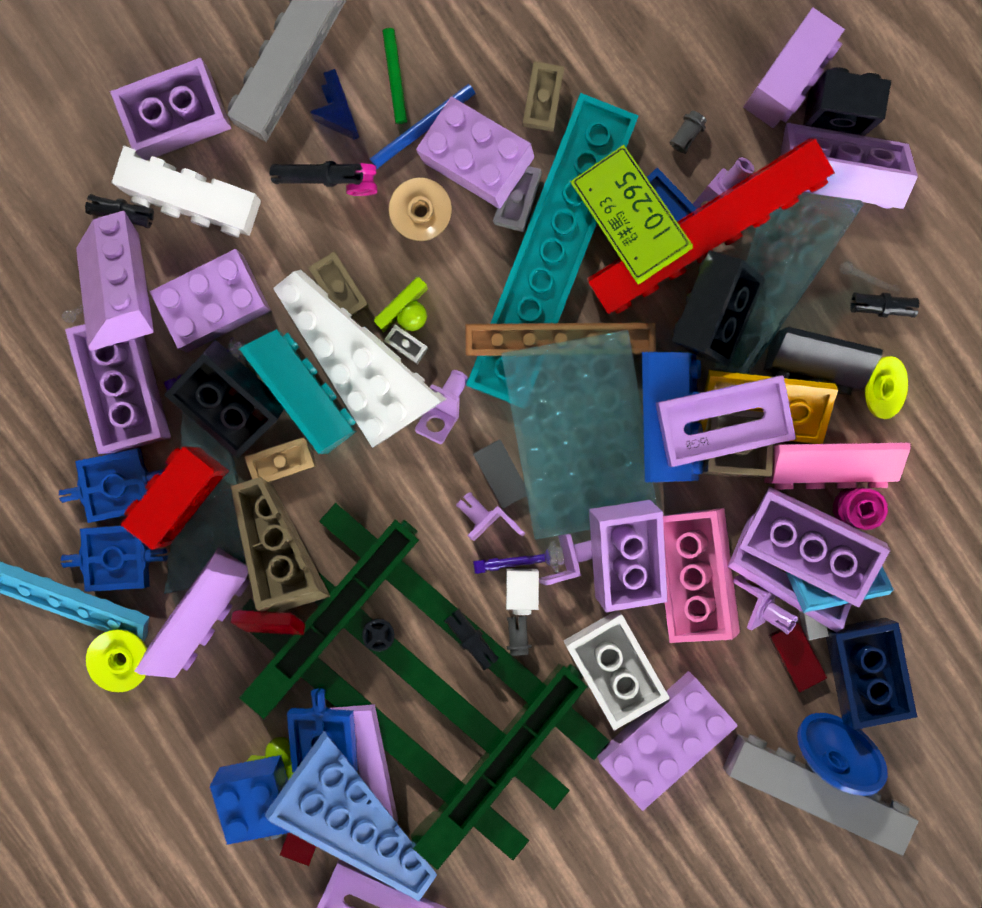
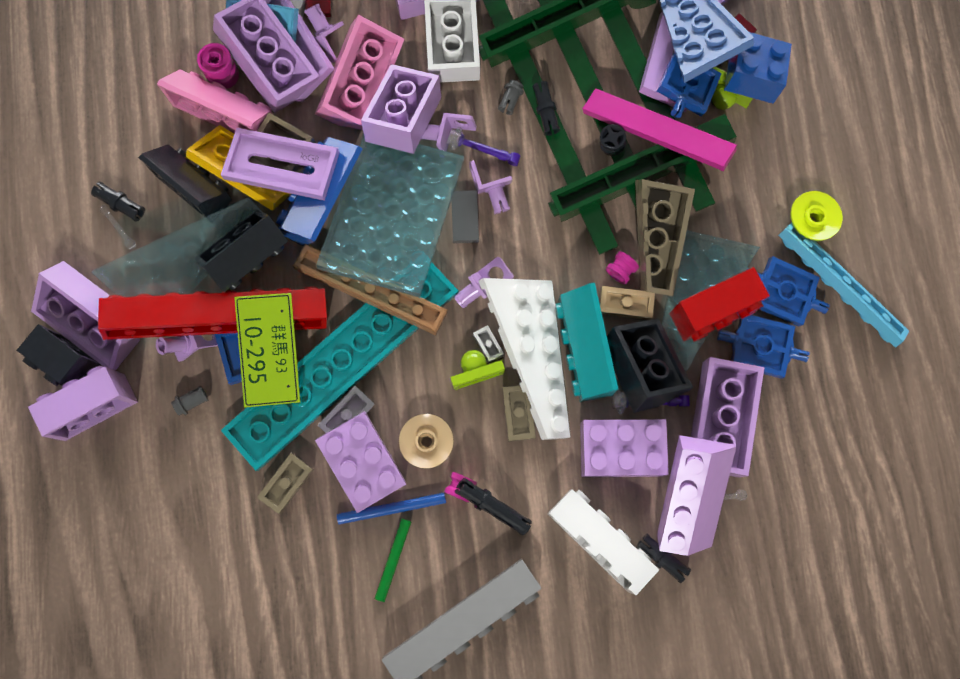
camera: 150 degrees left, 10 degrees down
(171, 109) = (585, 616): lavender brick -> none
(194, 616) = (743, 217): lavender slope -> none
(268, 622) = (690, 180): dark red tile -> none
(302, 497) = (622, 268): none -> dark pink wheel
(329, 666) = (660, 129): none -> dark pink tile
(335, 115) = (451, 546): clear blue slope -> none
(522, 590) = (491, 126): white brick -> none
(887, 388) = (150, 138): neon yellow dish -> none

